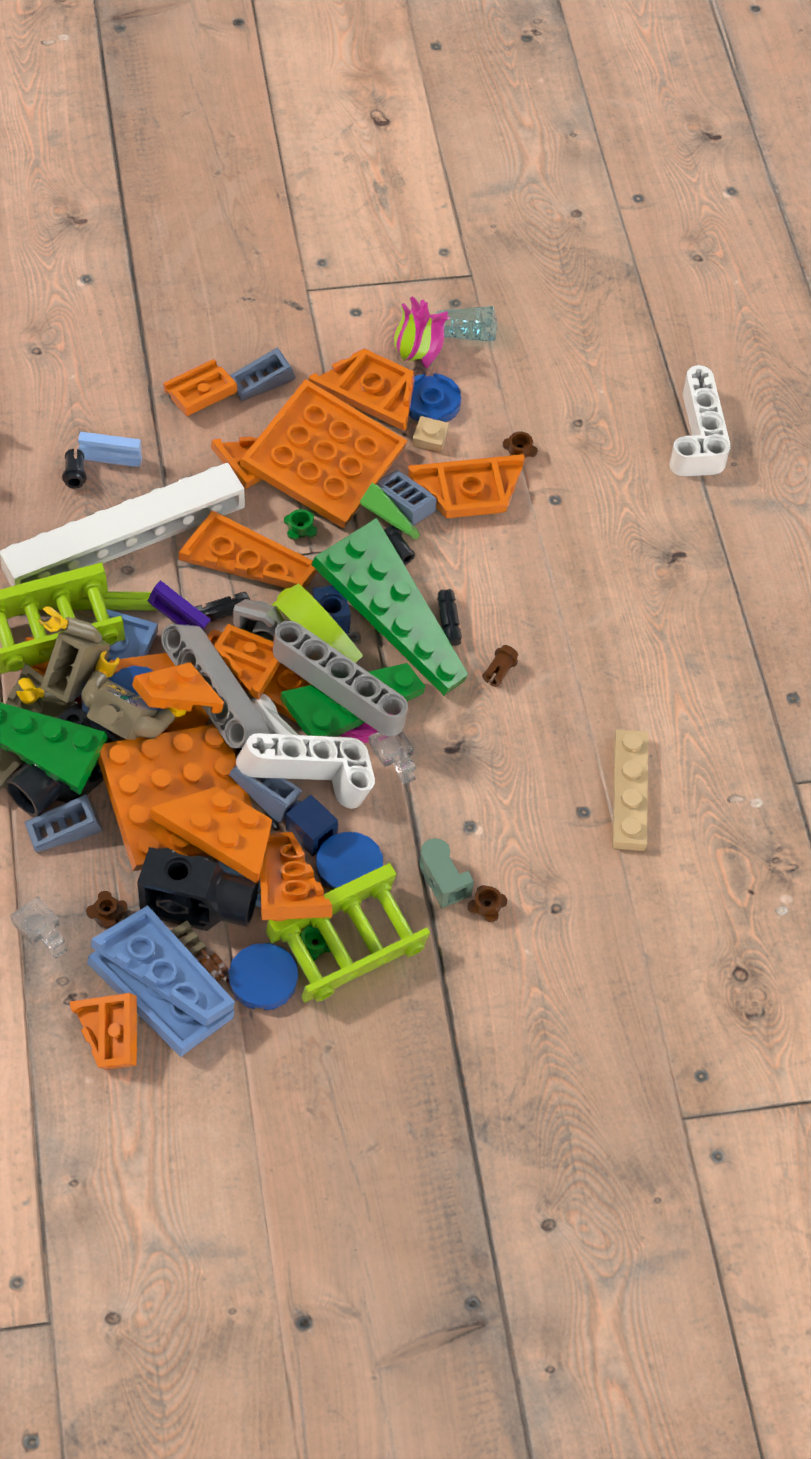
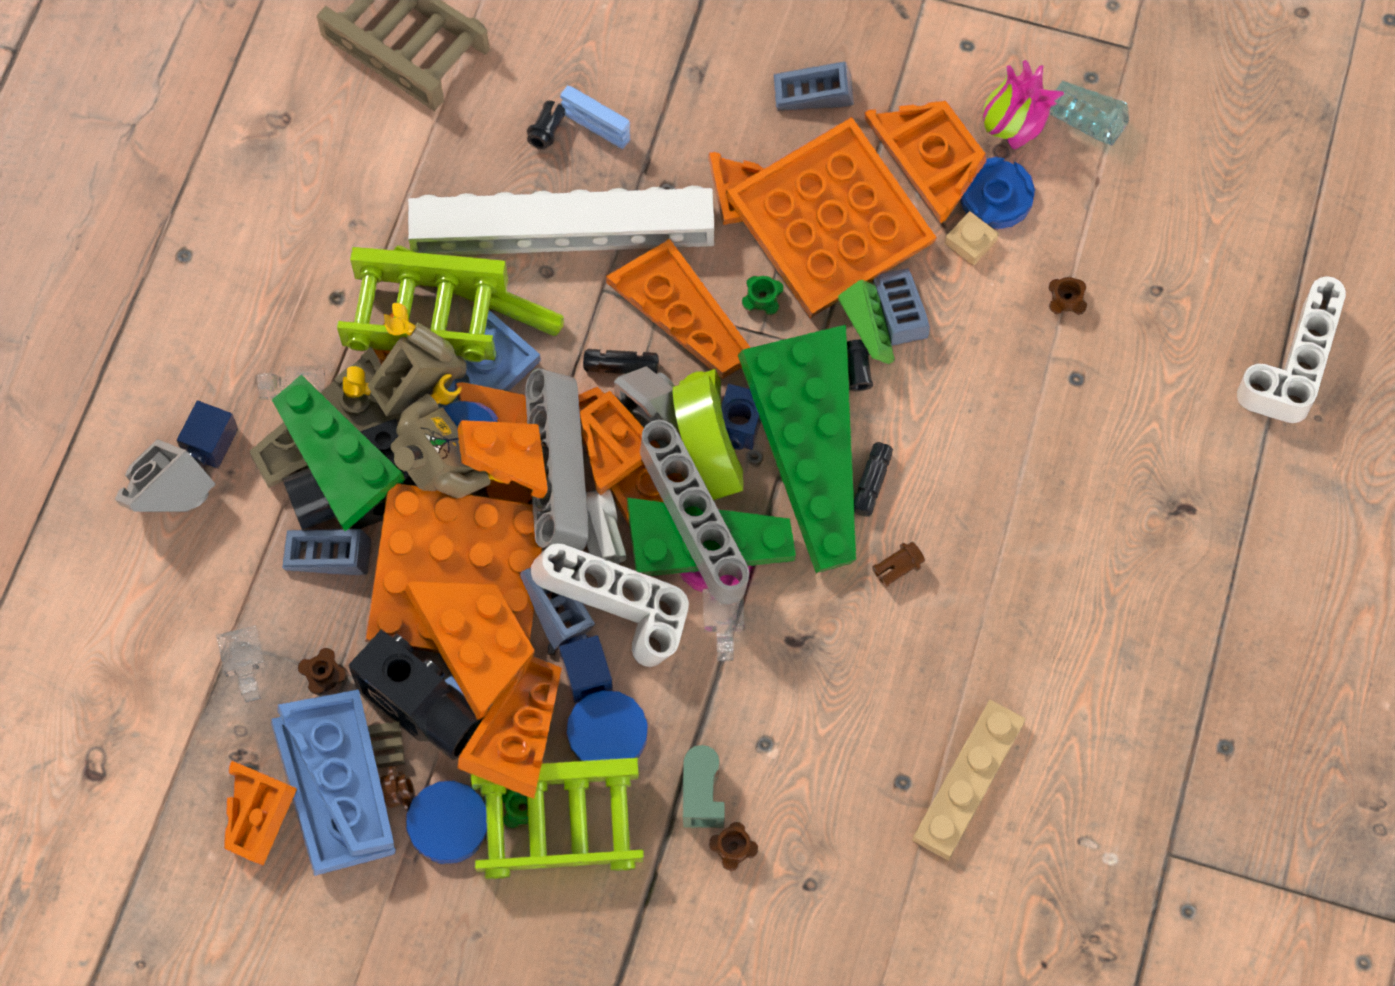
camera: 30 degrees right, 10 degrees up
(176, 607) = (568, 348): dark purple tile -> none
(200, 387) = (735, 77): orange plate -> none
(470, 485) = (982, 322): orange wing -> none

